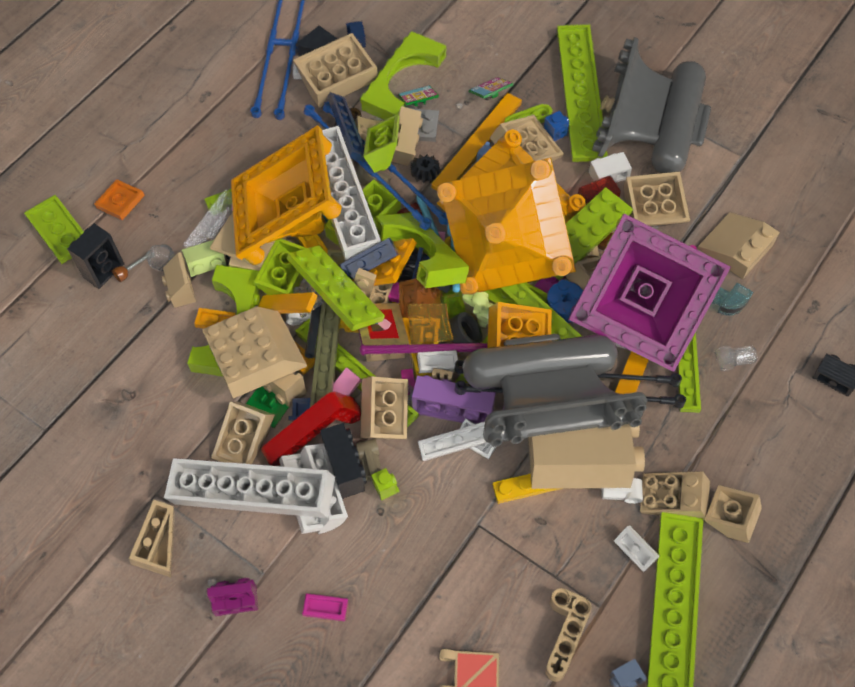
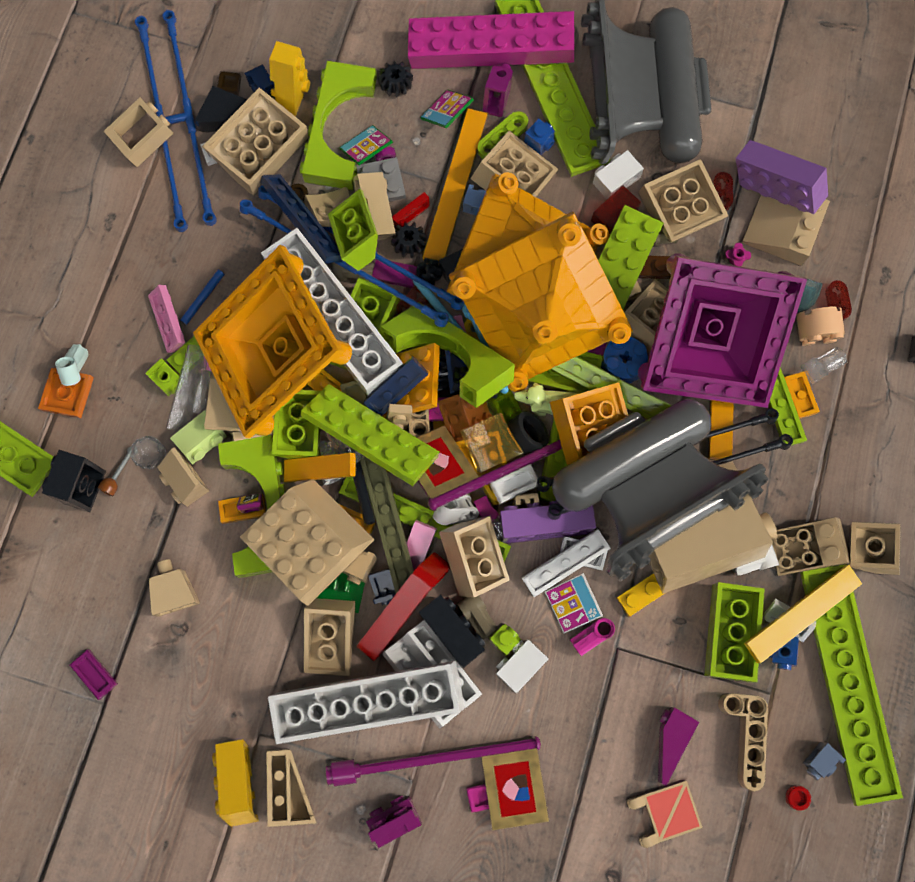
camera: 20 degrees left, 15 degrees up
(47, 405) = (93, 674): none -> magenta tile
(116, 522) = (234, 783): none -> yellow wedge
(130, 178) = (70, 365): none -> light aqua piece
(133, 362) = (170, 590): none -> tan torso
(196, 208) = (159, 372): none -> lime brick
(216, 170) = (166, 319): none -> bright pink plate
(220, 315) = (250, 503): none -> magenta slope
(233, 174) = (202, 297): none -> blue bar
(256, 49) = (147, 144): none -> tan window
(334, 28) = (229, 82): none -> dark brown tile
(346, 596) = (510, 777): none -> flag
(378, 31) = (289, 76): none -> yellow wedge
(381, 367) = (456, 511): none -> white piece
(390, 509) = (521, 665): none -> white brick
(404, 191) = (389, 275): none -> magenta tile
(430, 193) = (429, 270): none -> black gear
(431, 105) = (386, 153): none -> magenta tile
(436, 148) = (411, 210): none -> red tile
(453, 474) = (573, 603): none -> piece
(457, 506) = (590, 637): none -> dark pink piece
(459, 58) = (395, 79): none -> black gear
(502, 608) = (674, 737): none -> magenta slope
(535, 85) = (498, 81): none -> magenta torso
(543, 49) = (491, 40): none -> dark pink brick
(582, 540) = (733, 620): none -> lime brick
(607, 103) = (589, 91): tan bush -> none
(623, 571) = (786, 655): none -> blue brick
(647, 541) = (802, 614): none -> yellow tile
(695, 206) = (727, 191): none -> clear red beam
(708, 374) = (802, 395): none -> light orange plate
(741, 323) = (819, 325): none -> light nougat brick
(743, 201) = (782, 176): none -> medium lavender brick
(761, 312) = (842, 300): none -> clear red beam

